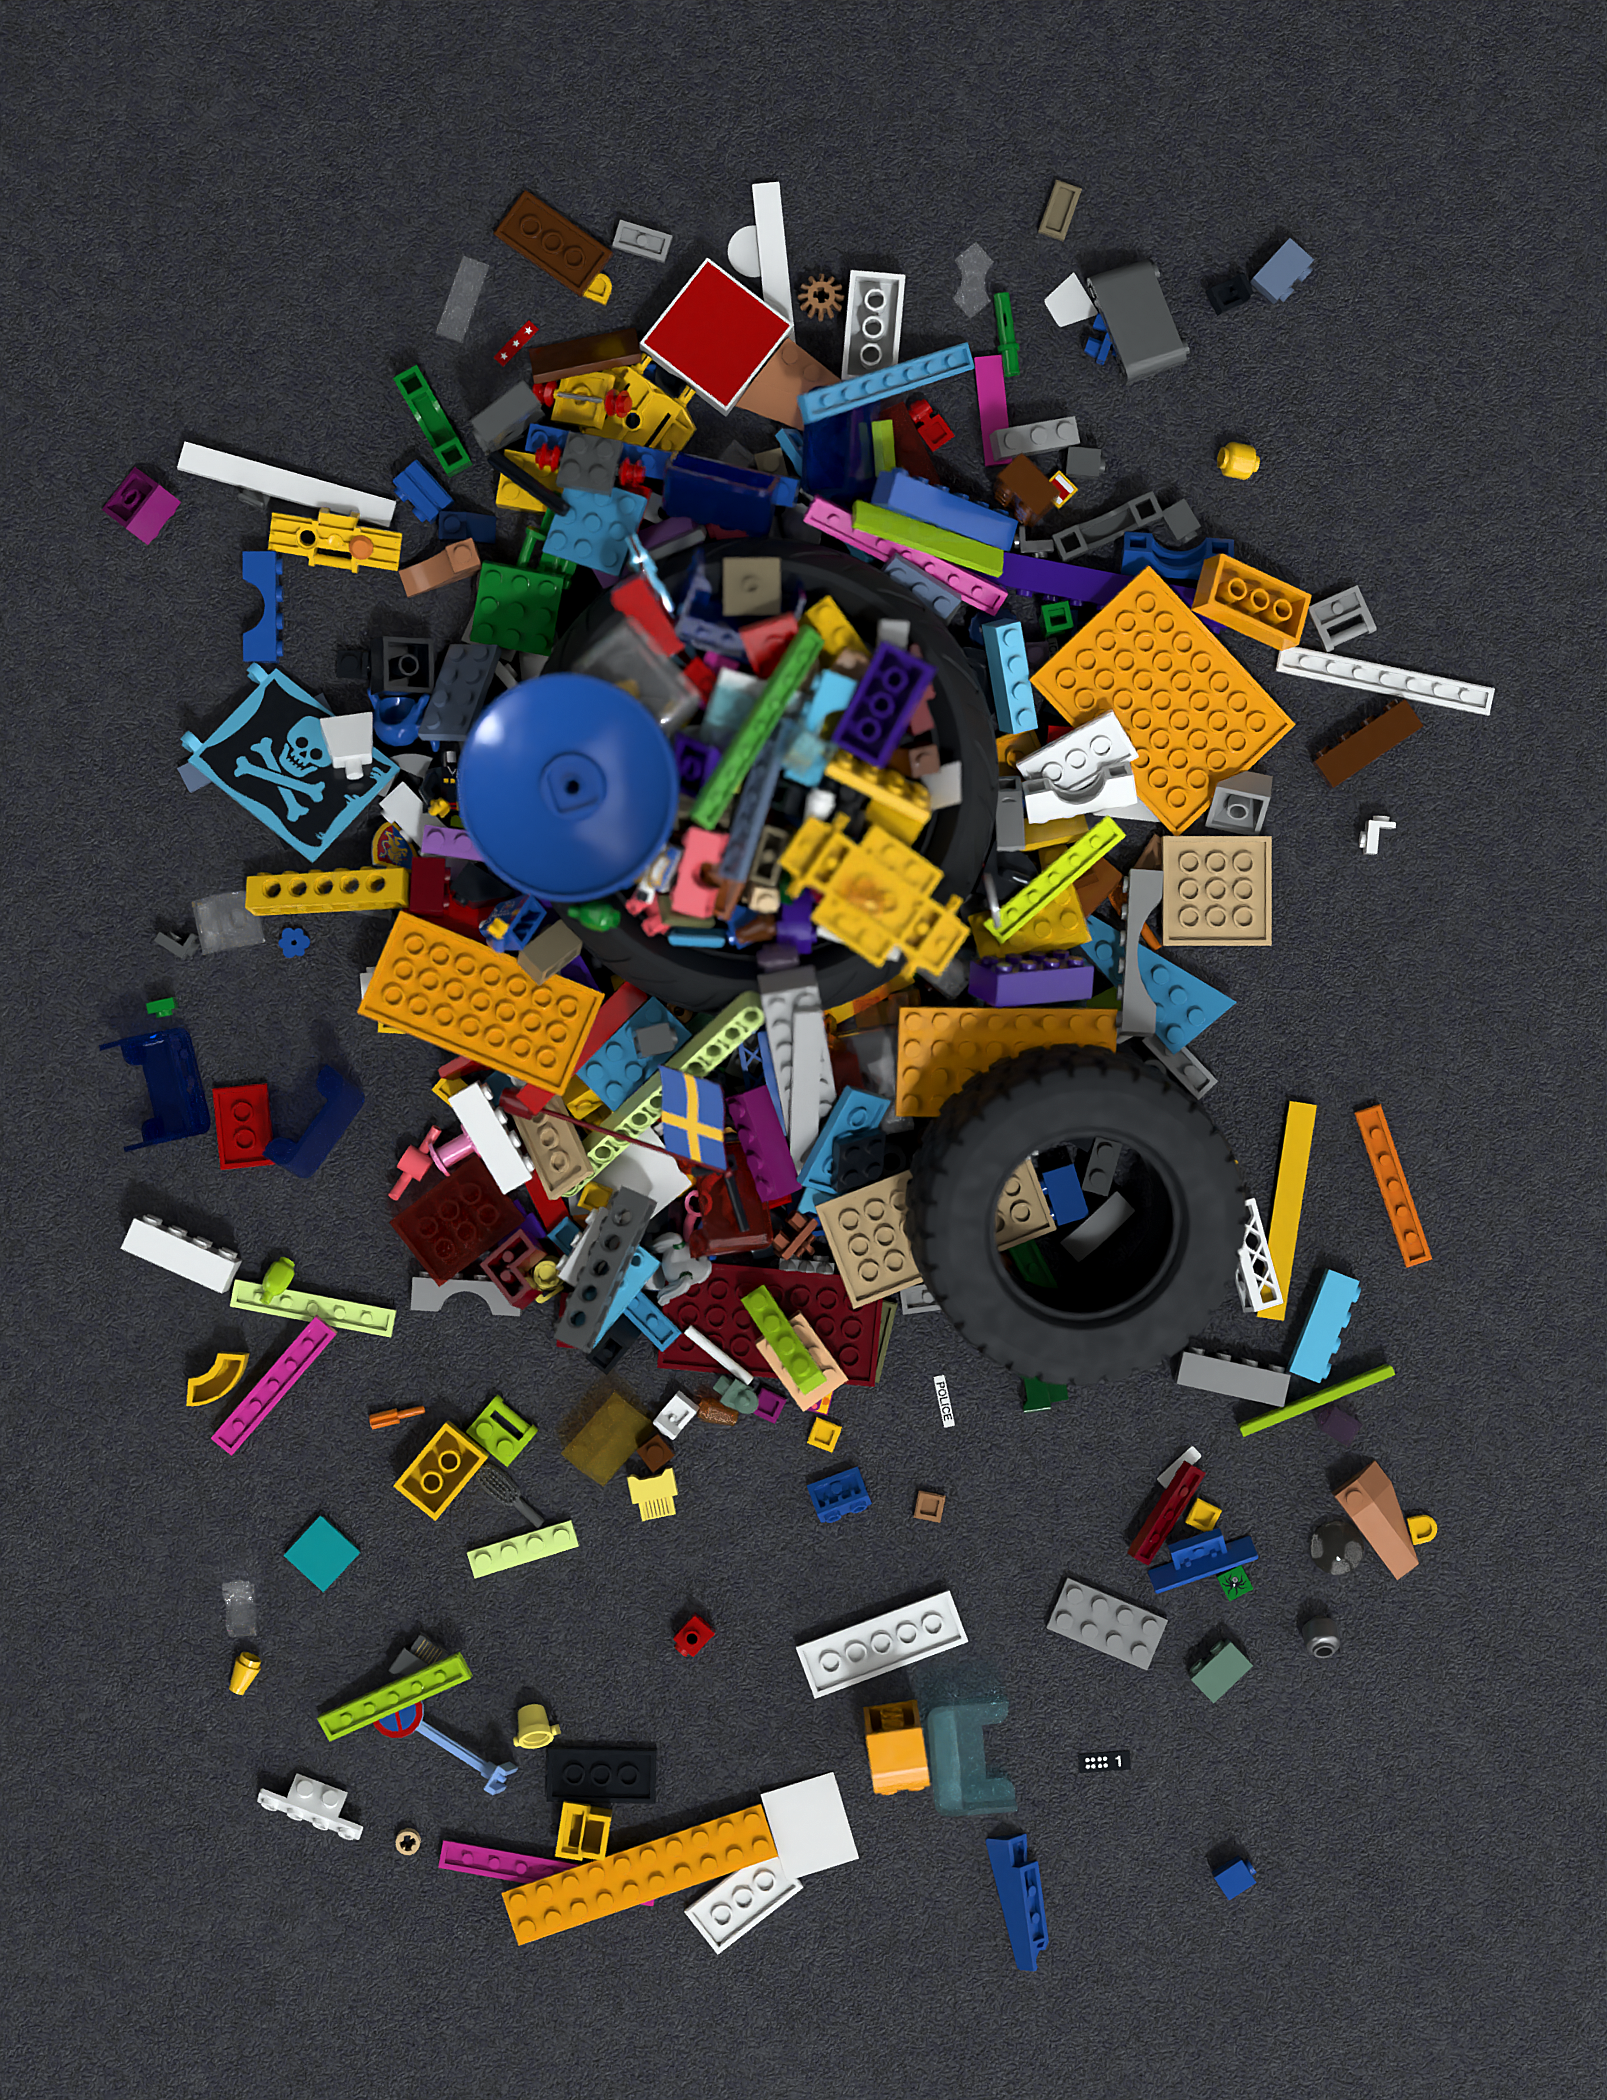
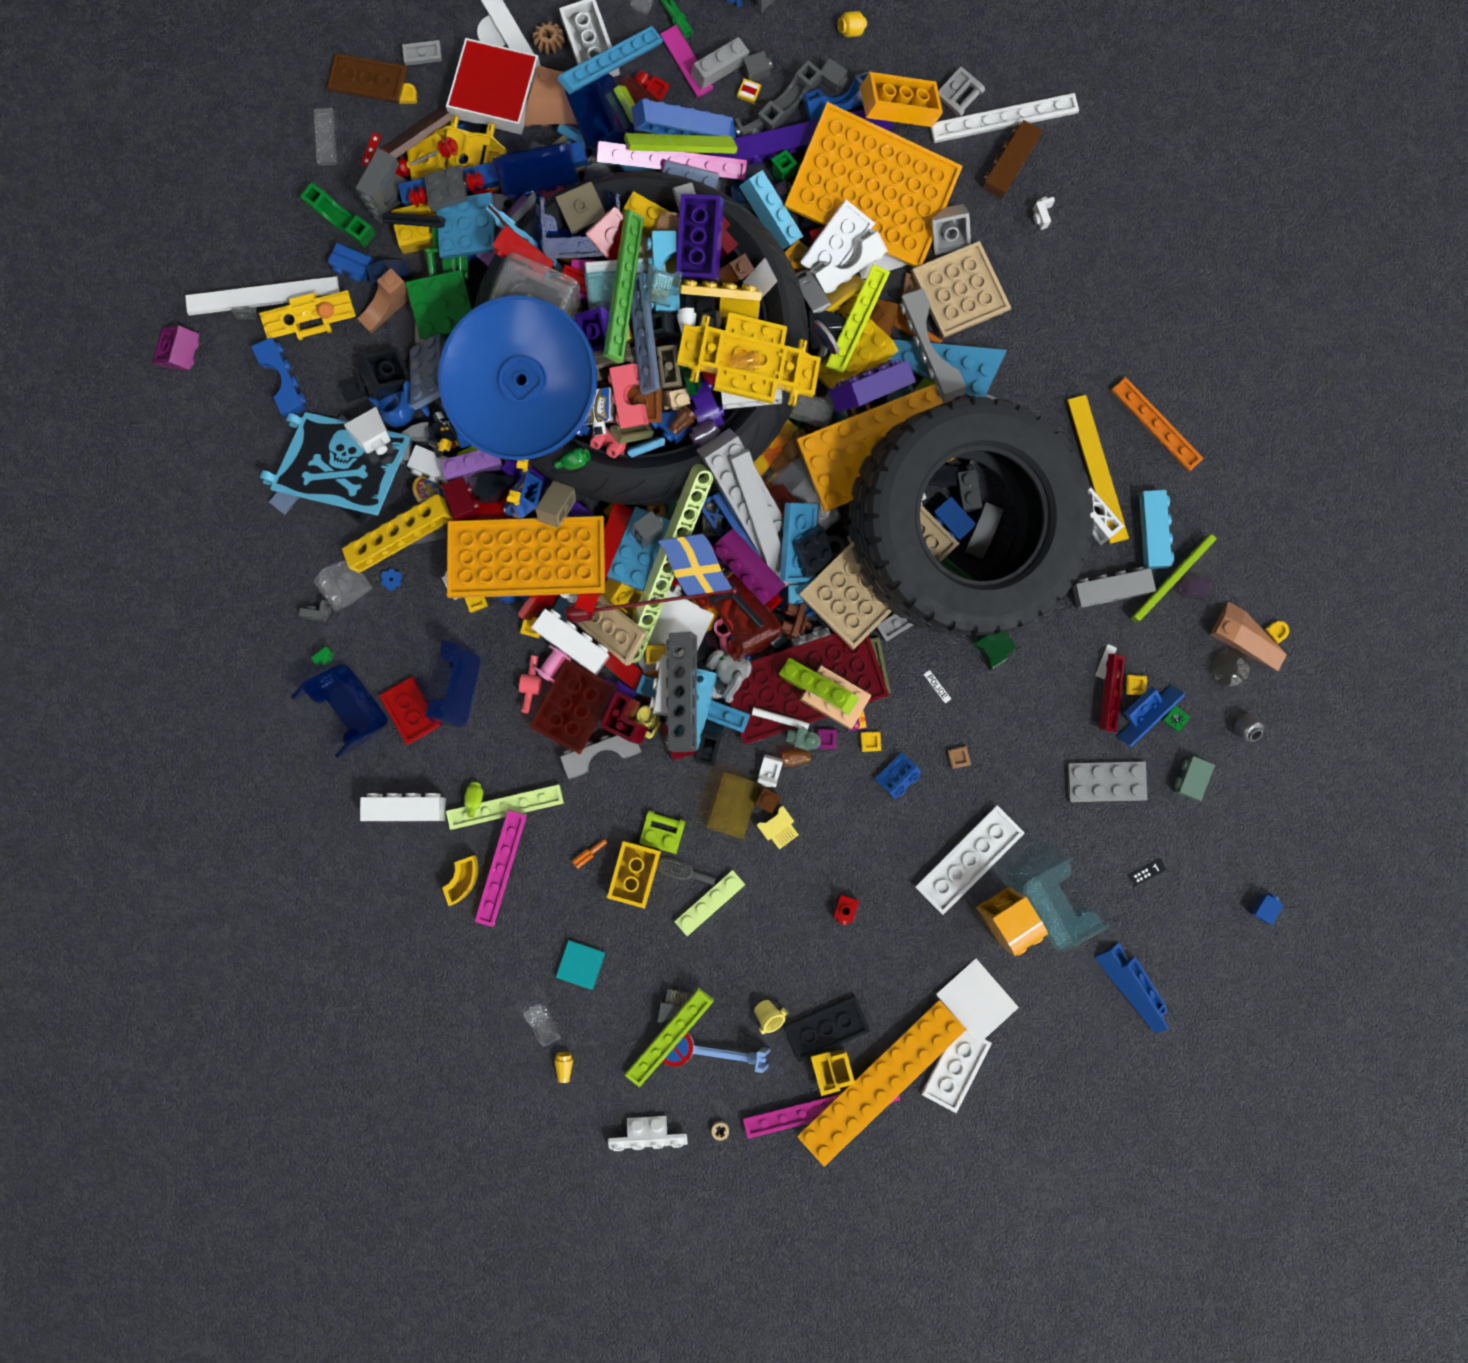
camera: 25 degrees left, 5 degrees down
(1025, 491) = (729, 89): reddish brown brick -> none

